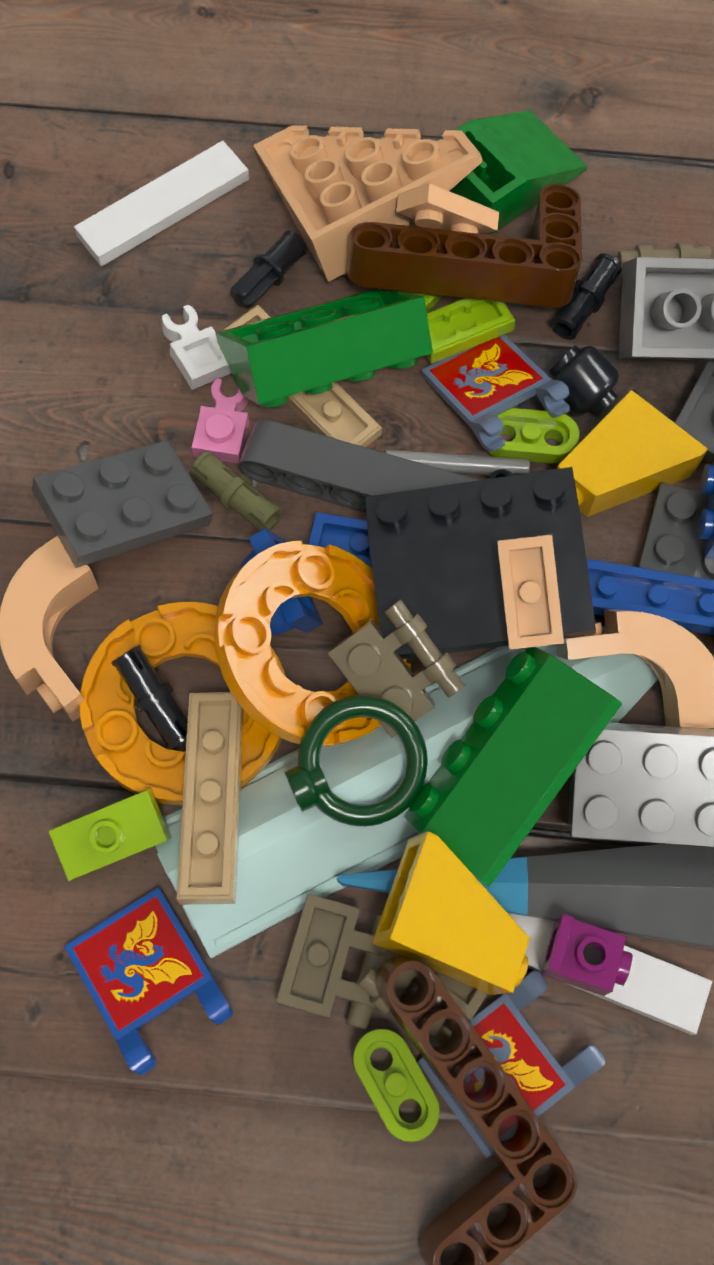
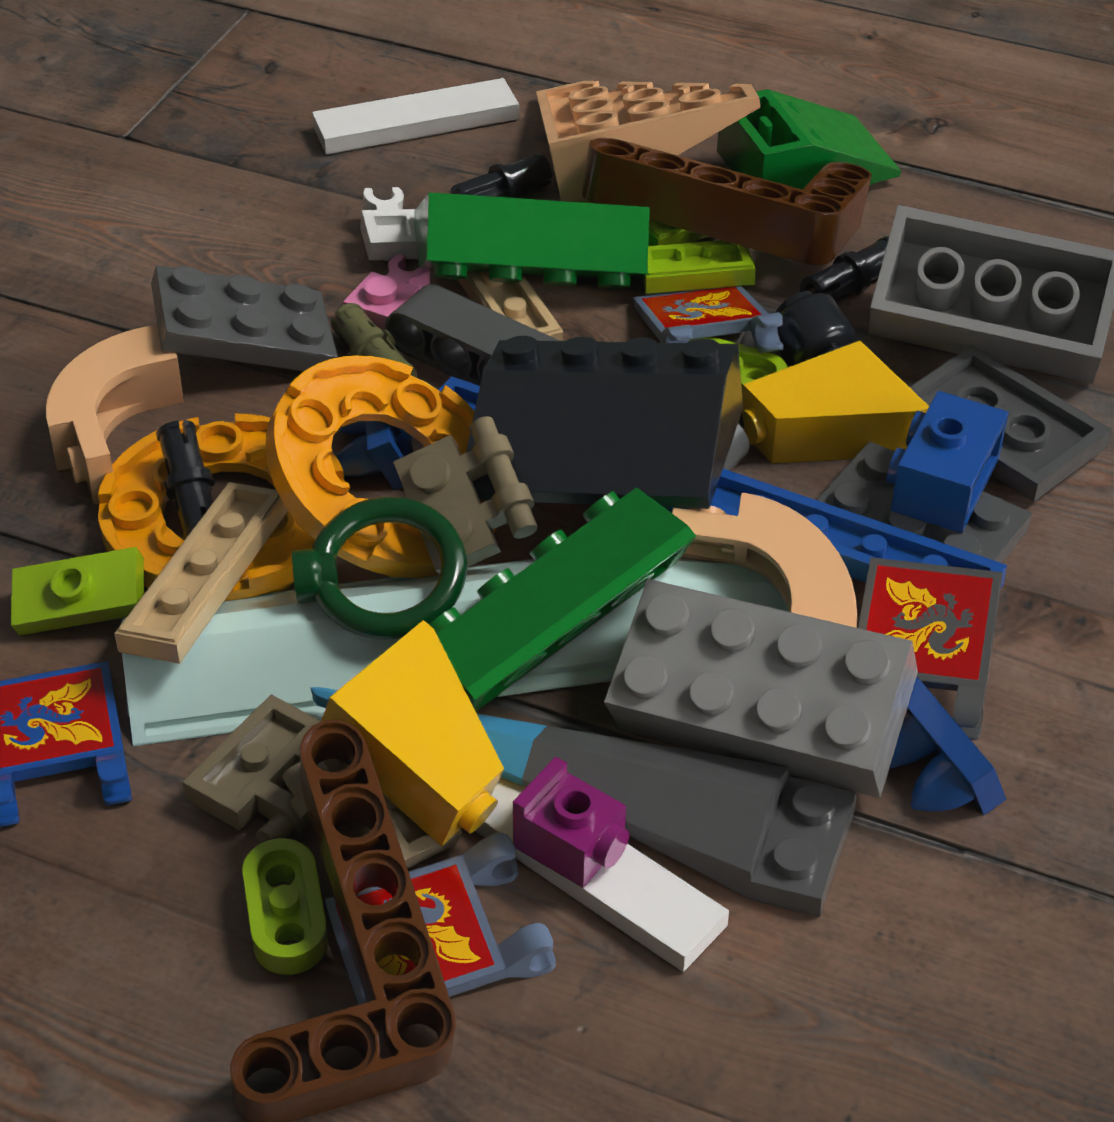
camera: 20 degrees right, 25 degrees down
(446, 211) = (697, 136): light nougat plate -> none
(530, 592) = (639, 434): light nougat plate -> none

